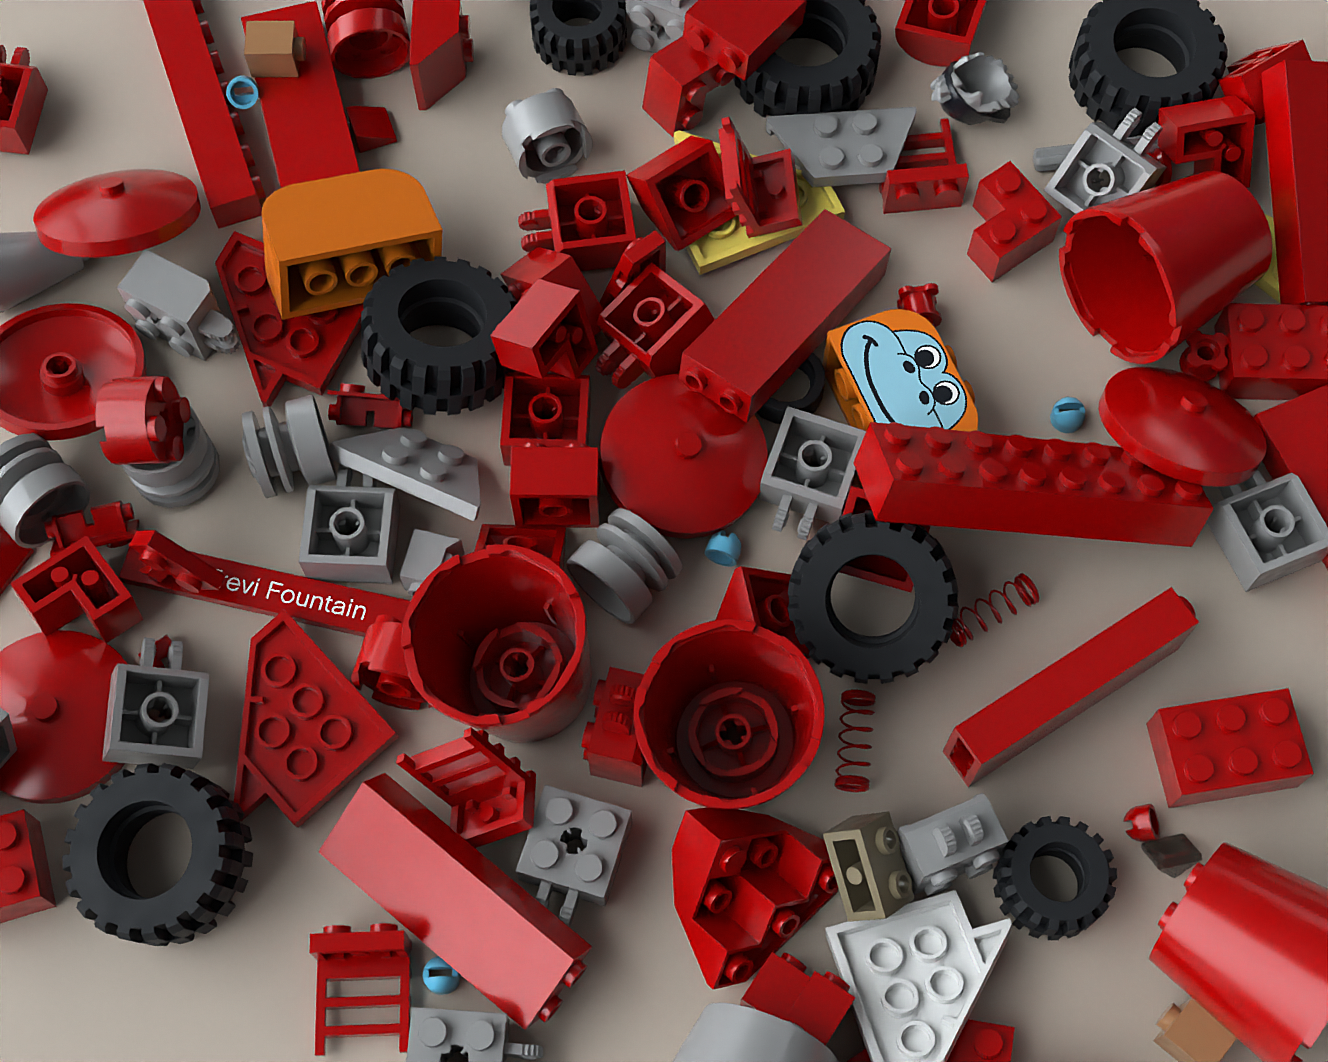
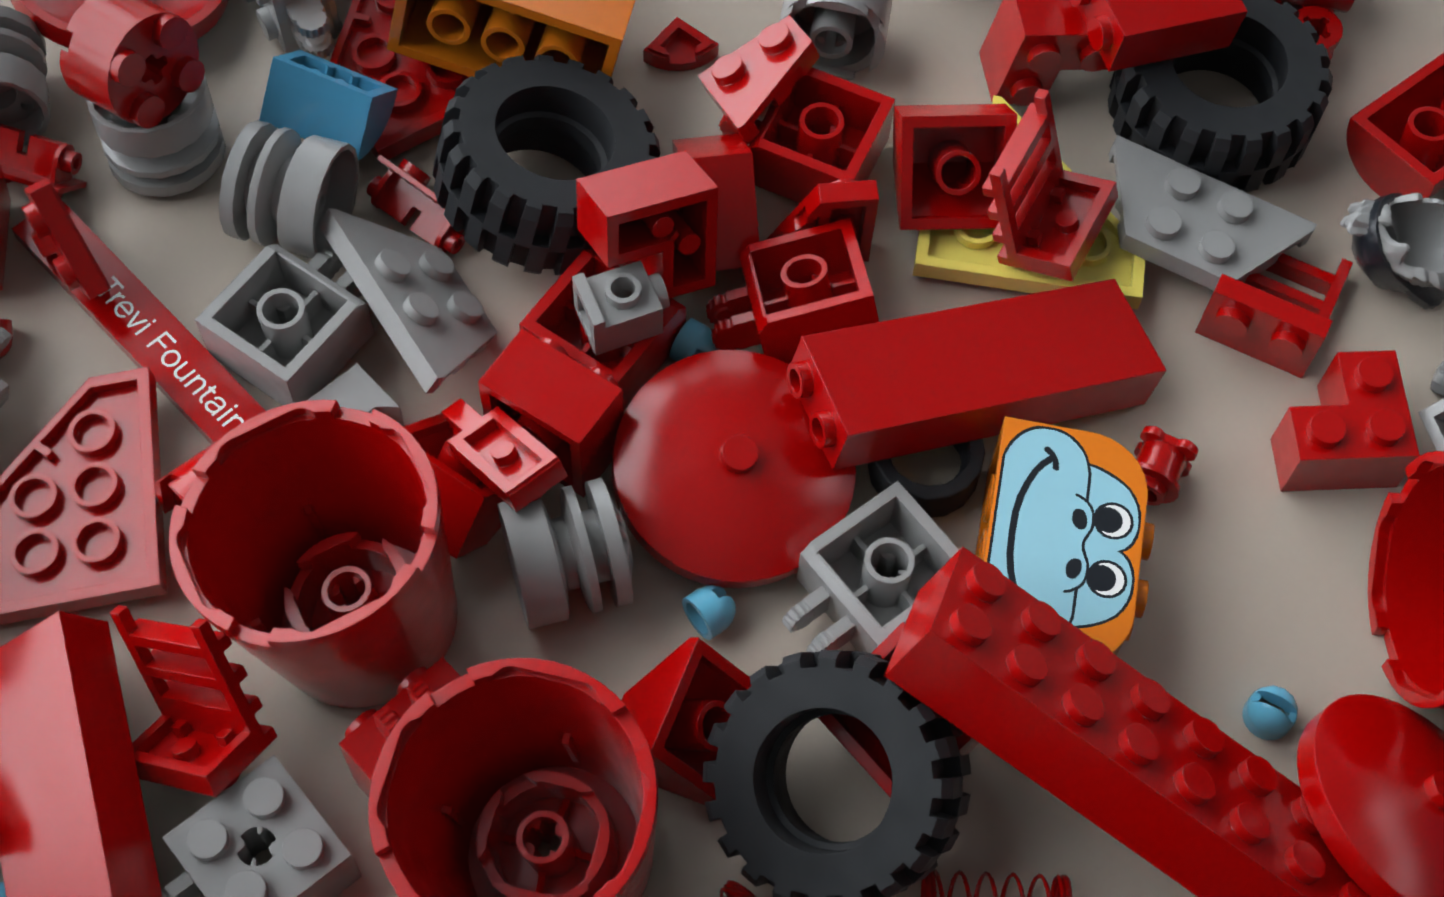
camera: 30 degrees right, 5 degrees down
(267, 376) = (326, 101): none -> dark azure brick
(457, 209) = (680, 48): none -> red tile
(530, 202) = (759, 74): none -> wing
(551, 529) = (502, 454): none -> red hinge
(554, 409) = (620, 306): none -> light grey brick
(603, 395) = (692, 340): none -> medium azure hinge

